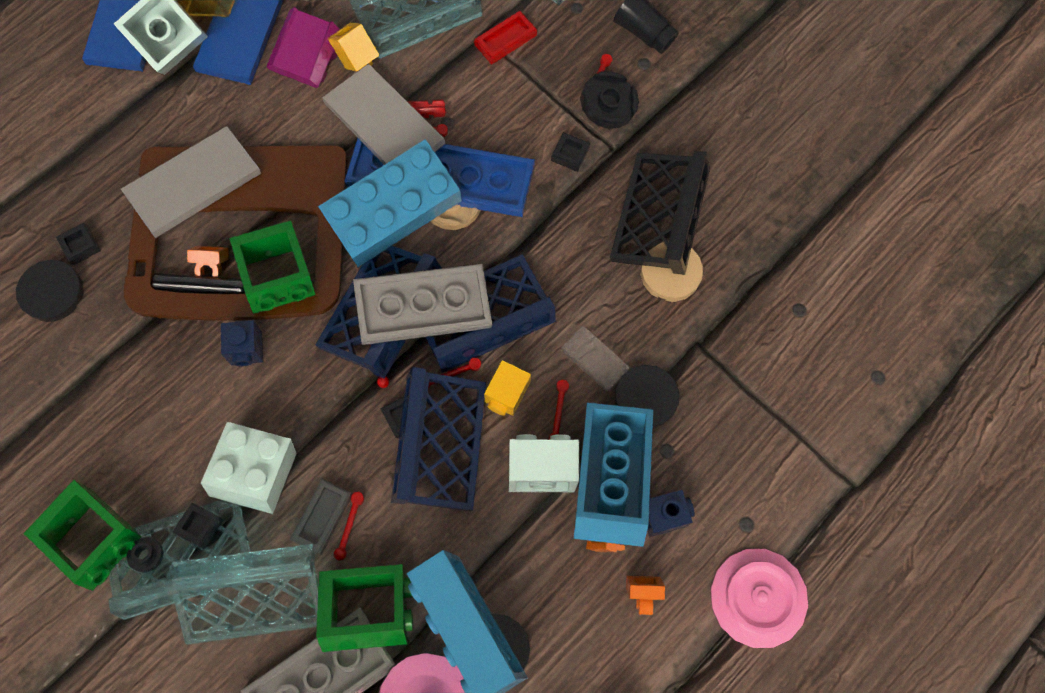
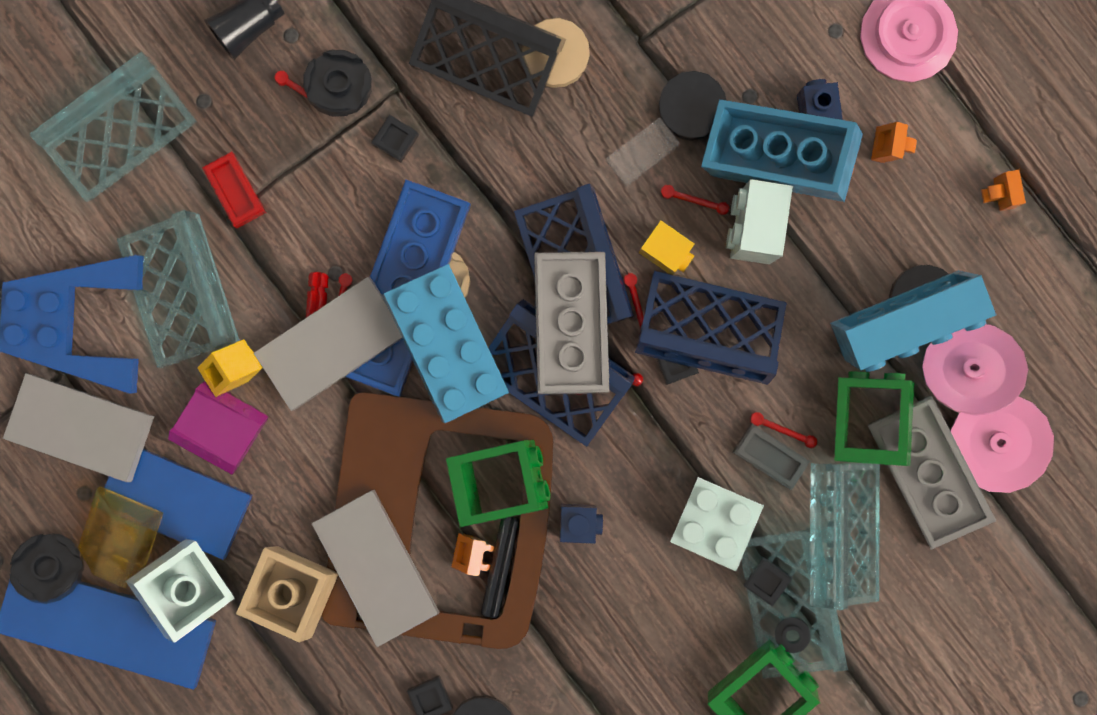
camera: 80 degrees left, 15 degrees up
(163, 112) = (287, 593): none -> tan brick

